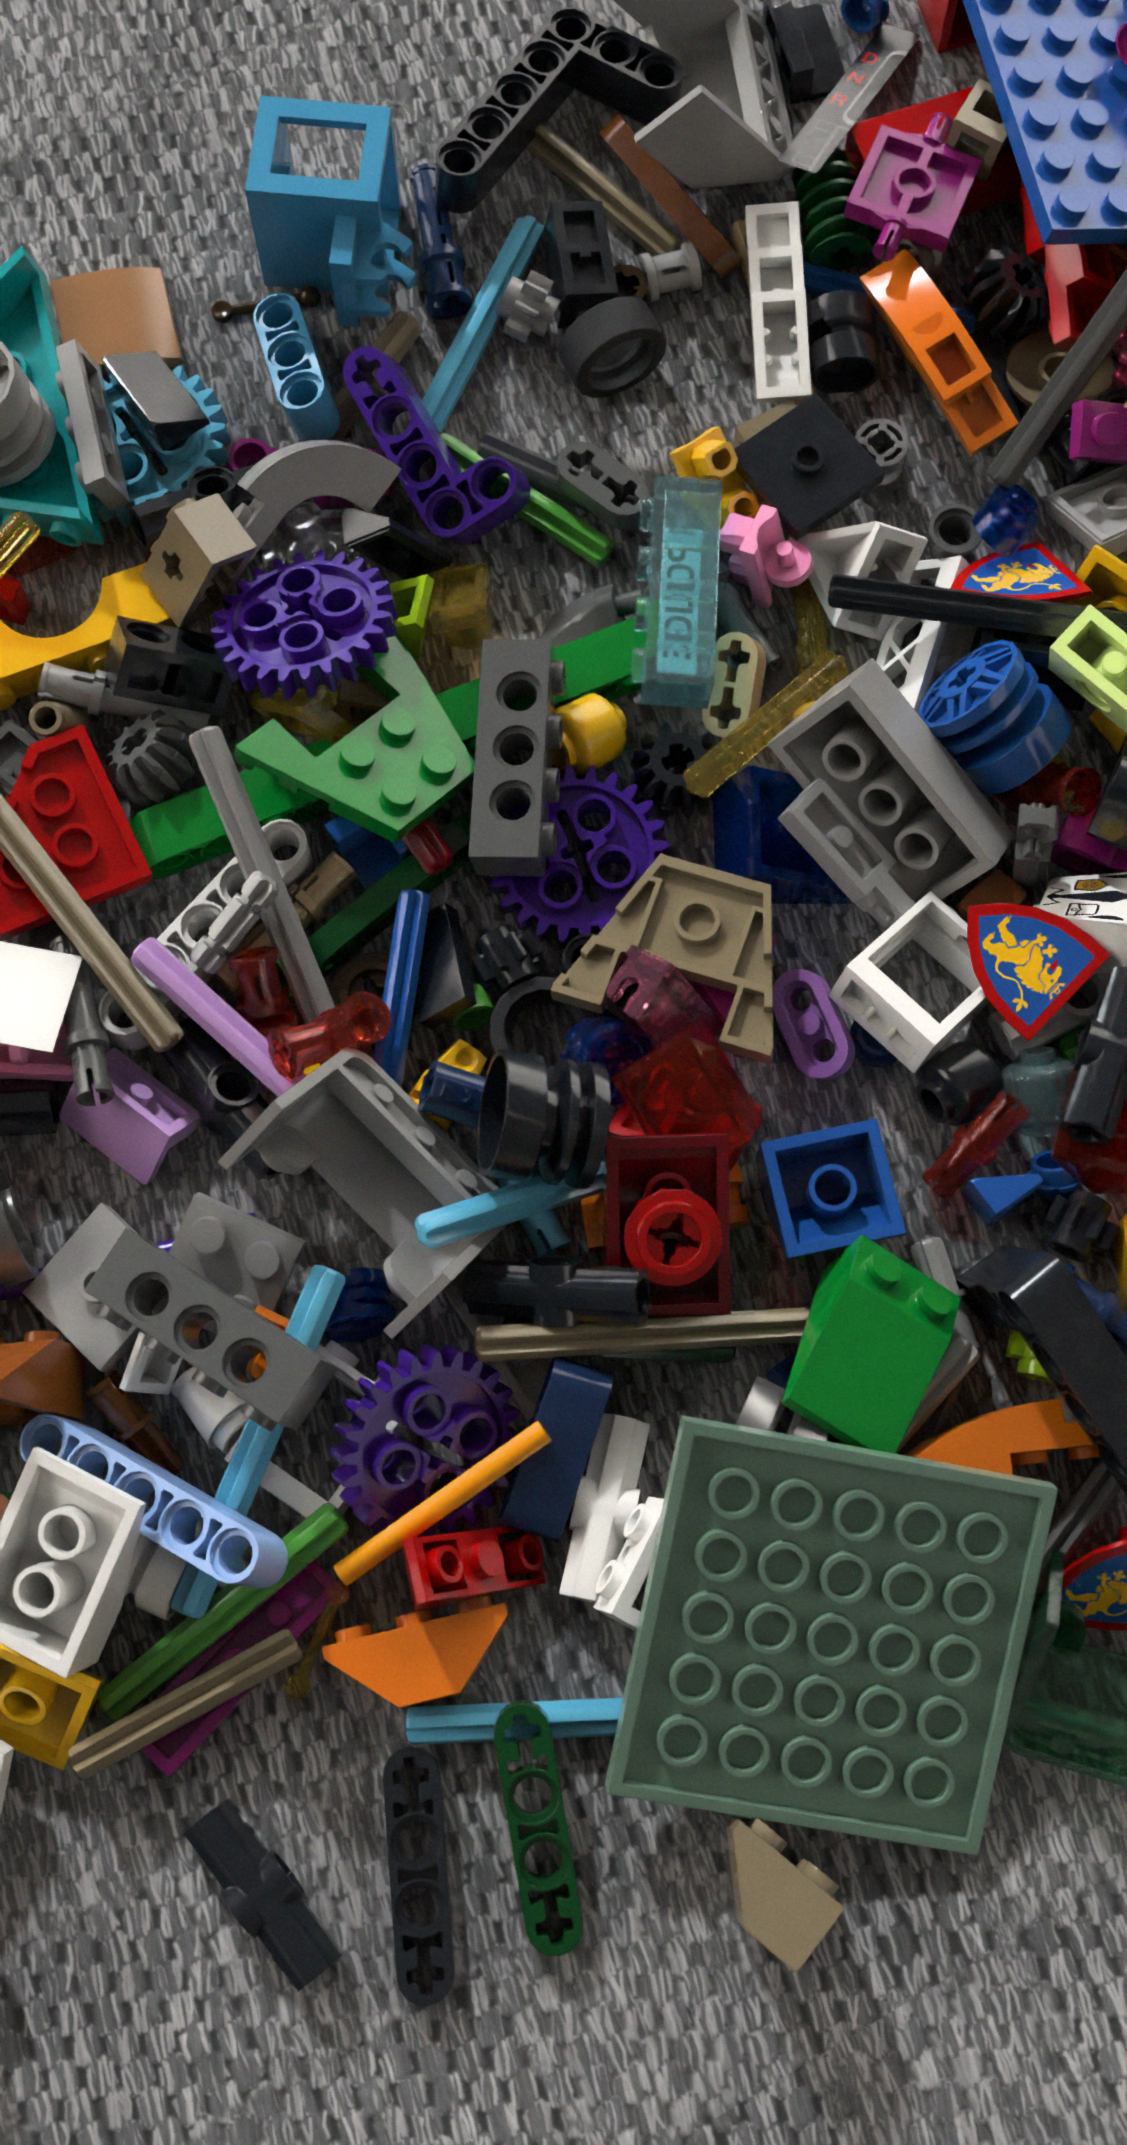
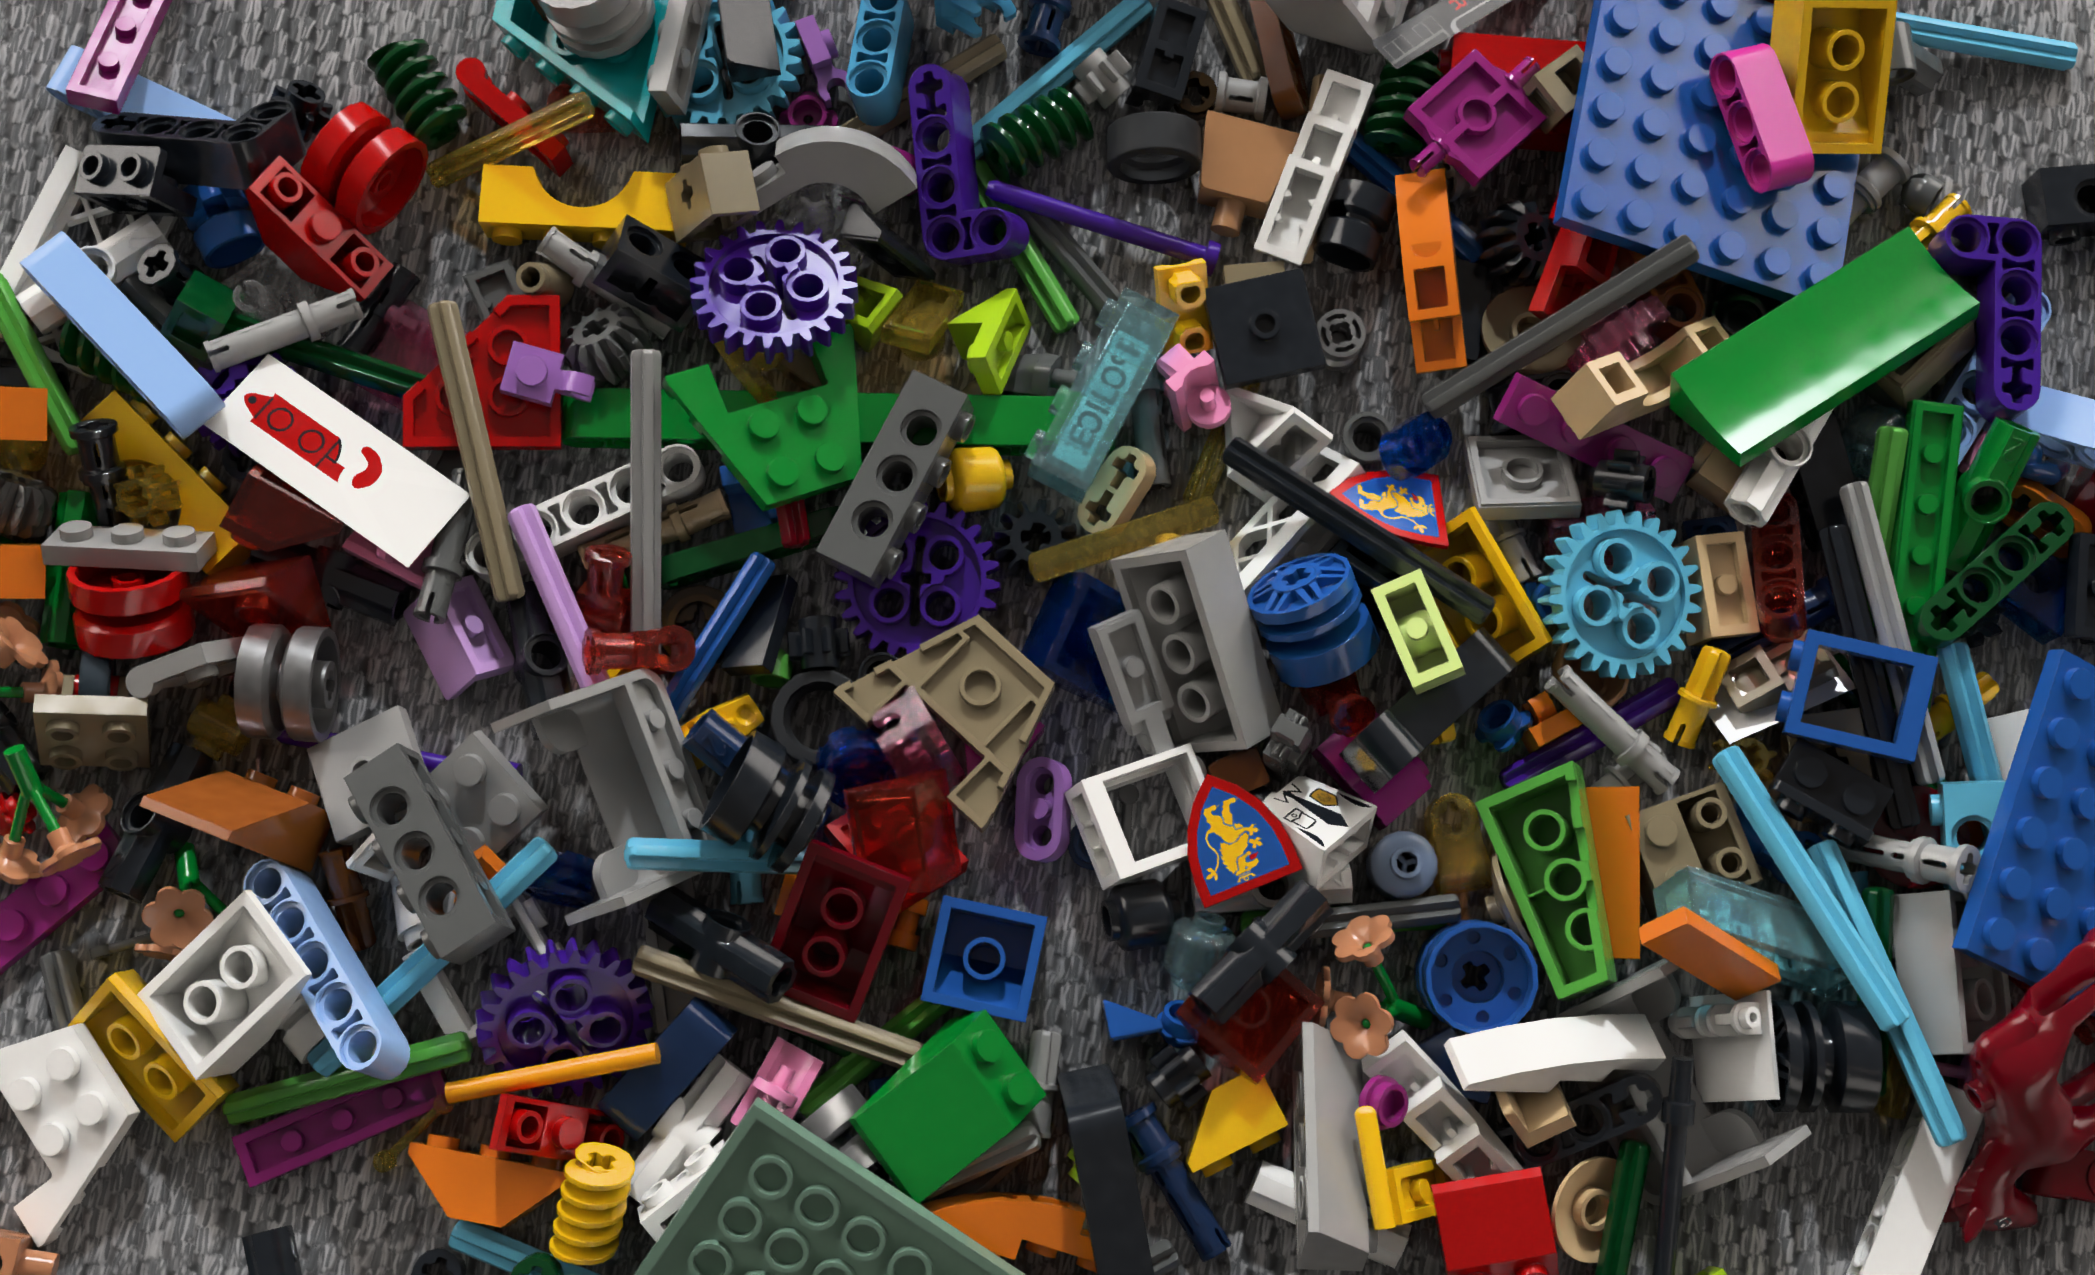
camera: 20 degrees right, 5 degrees up
(97, 810) = (538, 374): none -> medium lavender plate
(184, 1704) = (286, 1137): dark tan axle -> none
(234, 922) = (604, 520): light grey axle -> none
(237, 401) = (819, 52): none -> medium lavender plate
(487, 383) = (1032, 130): none -> dark green piece
(537, 593) = (992, 338): none -> lime slope
(546, 1624) = (592, 1204): none -> yellow piece
(599, 489) = (1098, 261): dark grey beam -> none
(607, 440) = (1103, 224): none -> dark purple bar
(676, 1394) = (781, 1080): none -> bright pink hips
(686, 1261) = (834, 967): red gear -> none
(705, 336) = (1240, 169): none -> medium nougat torso
(749, 1360) = (855, 1068): none -> bright green axle
(975, 1144) = (1124, 972): clear red pin -> none

